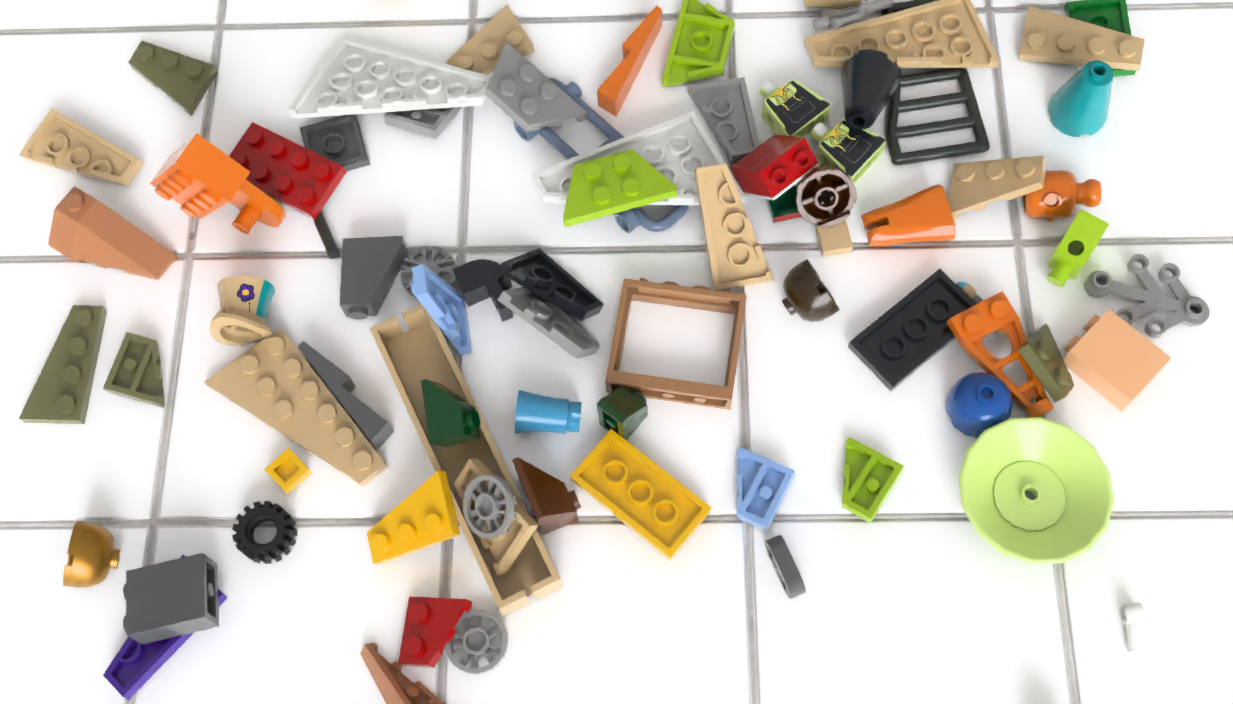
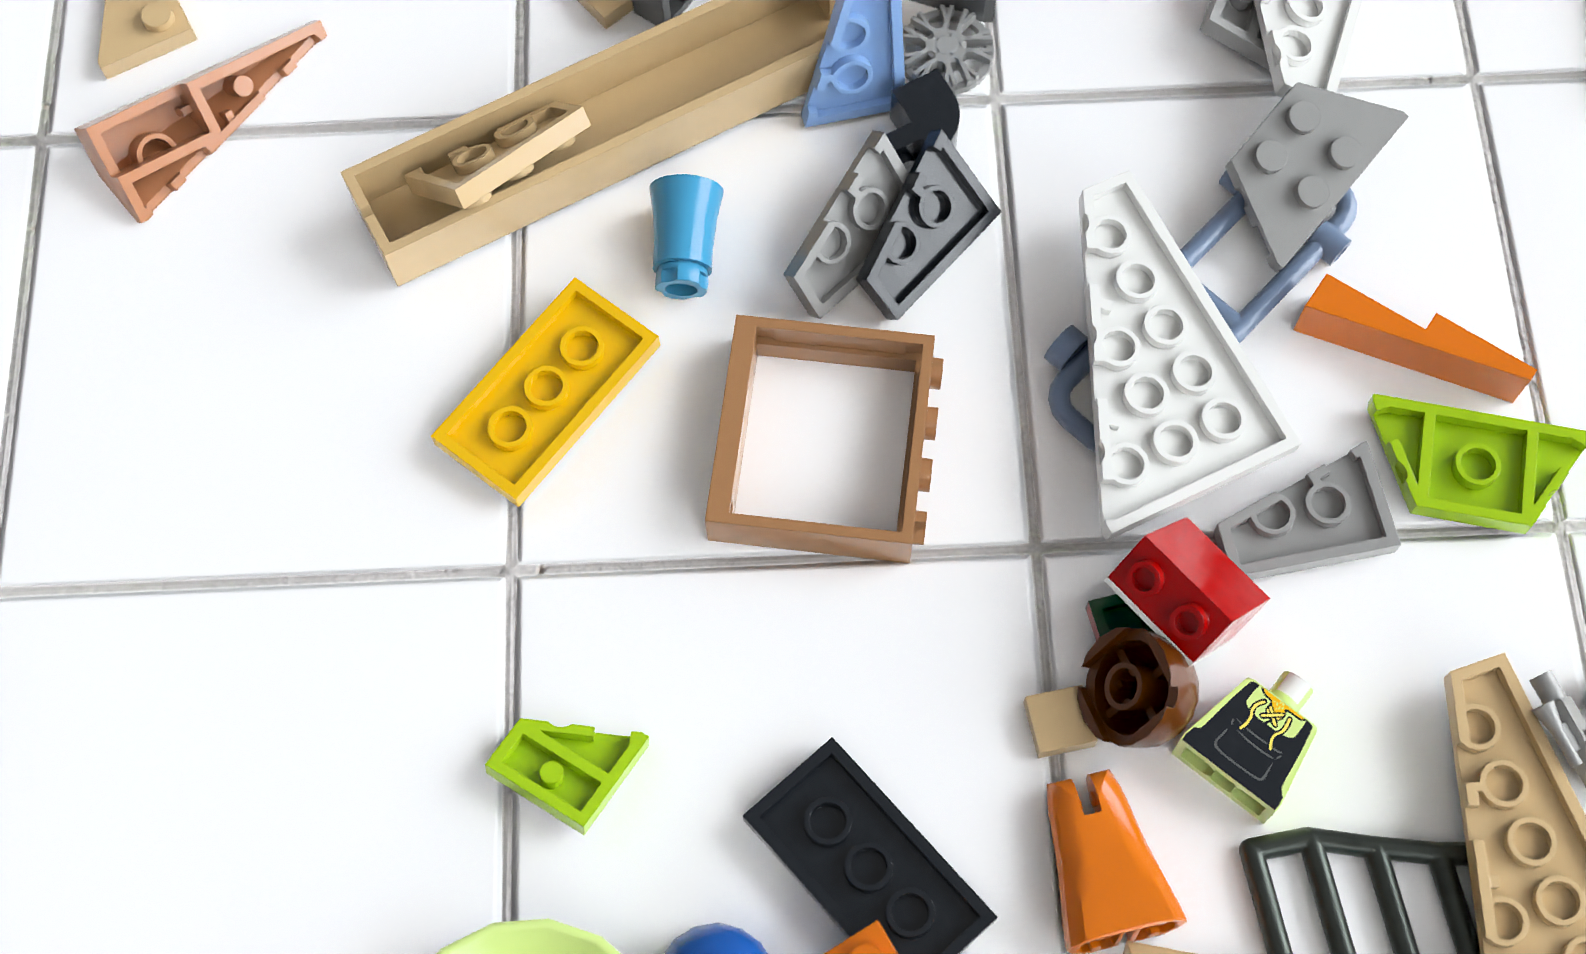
camera: 85 degrees right, 0 degrees up
(416, 522) = (494, 56): yellow wing -> none
(429, 628) = (337, 100): red wing -> none
(448, 416) = (662, 70): dark green slope -> none
(477, 642) = (313, 169): light grey wheel -> none
(484, 48) = (1441, 122): tan wing -> none
(489, 506) = (496, 136): light grey wheel -> none
(547, 496) = (534, 231): reddish brown slope -> none
(613, 186) = (1109, 298): lime wing -> none
(622, 411) = (682, 345): dark green slope -> none
(730, 242) = (1031, 511): tan wing -> none
(760, 488) = (553, 583): light blue wing -> none
(785, 566) = (410, 622): dark grey beam -> none
(792, 108) = (1332, 636): torso -> none
(807, 294) = (927, 663): dark brown cylinder -> none
(867, 86) = (1386, 769): black cone -> none

